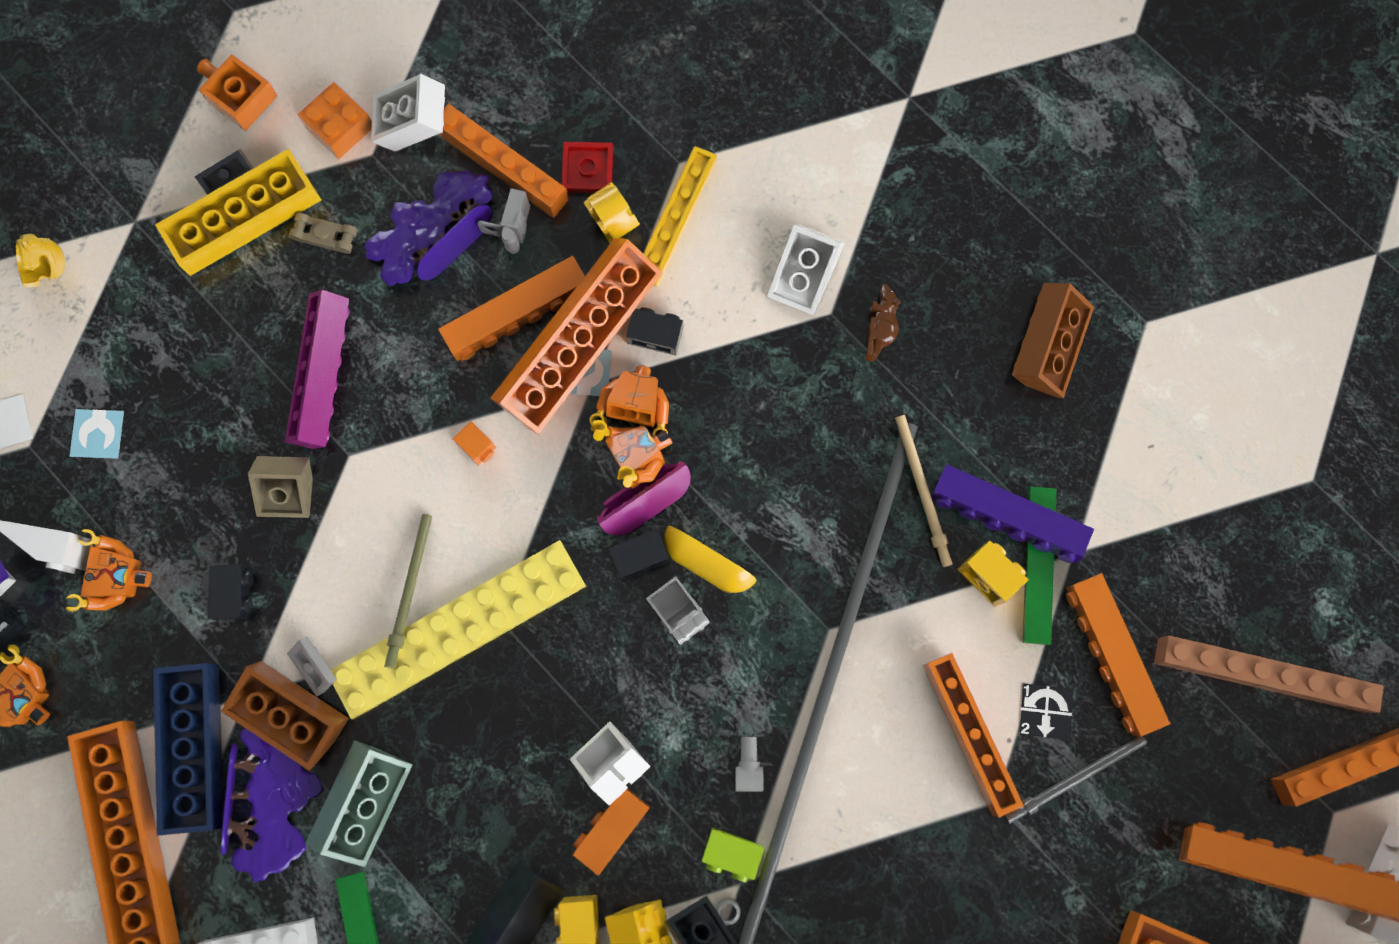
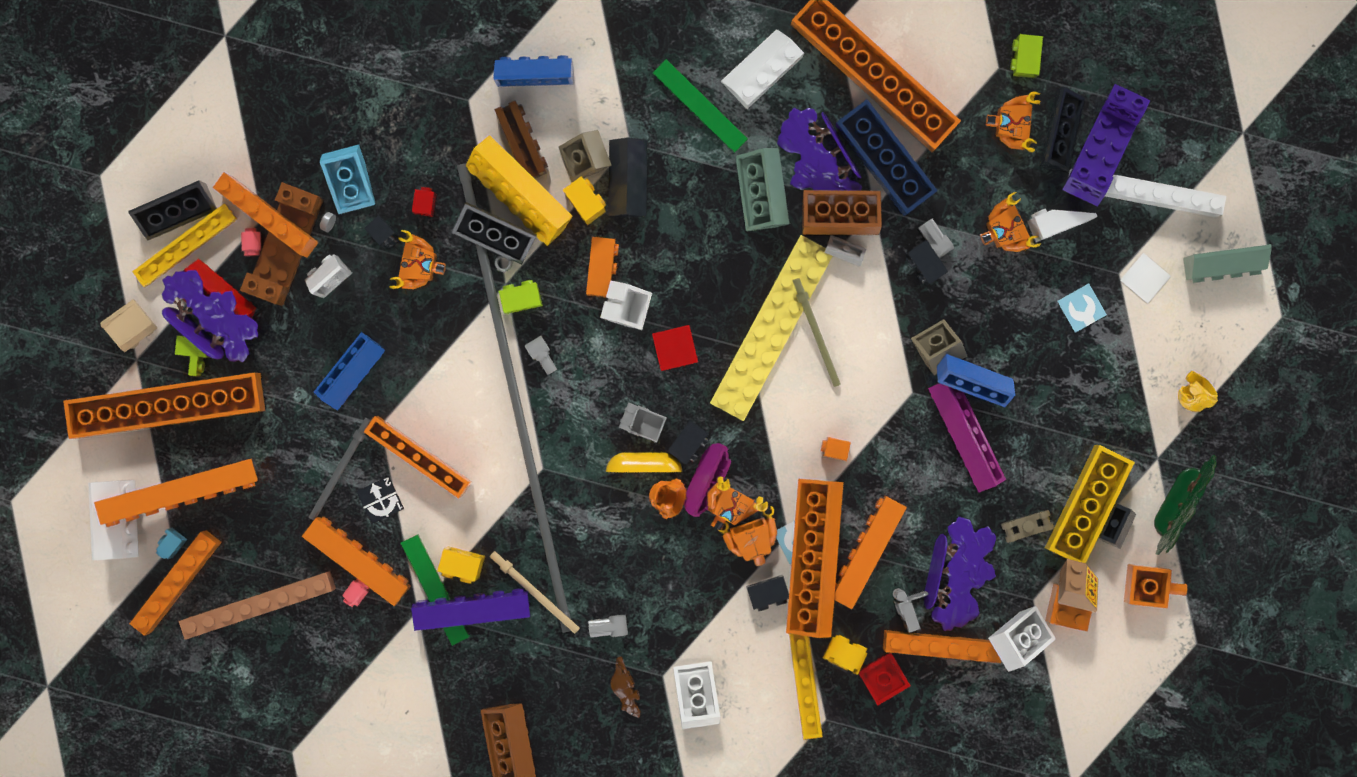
camera: 155 degrees right, 10 degrees up
(138, 150) = (1181, 503): none -> dark green plant
(196, 606) = (938, 241): none -> light grey piece
(264, 420) = (975, 380): none -> blue brick
(309, 131) = (1078, 586): none -> medium nougat slope
(585, 676) = (675, 348): none -> red tile
(702, 504) = (668, 497): none -> orange helmet
(853, 399) = (611, 626): none -> light grey piece
(998, 894) = (349, 371): none -> blue brick
(1140, 617) = (355, 593): none -> coral brick
(1338, 815) = (170, 544): none -> medium azure brick

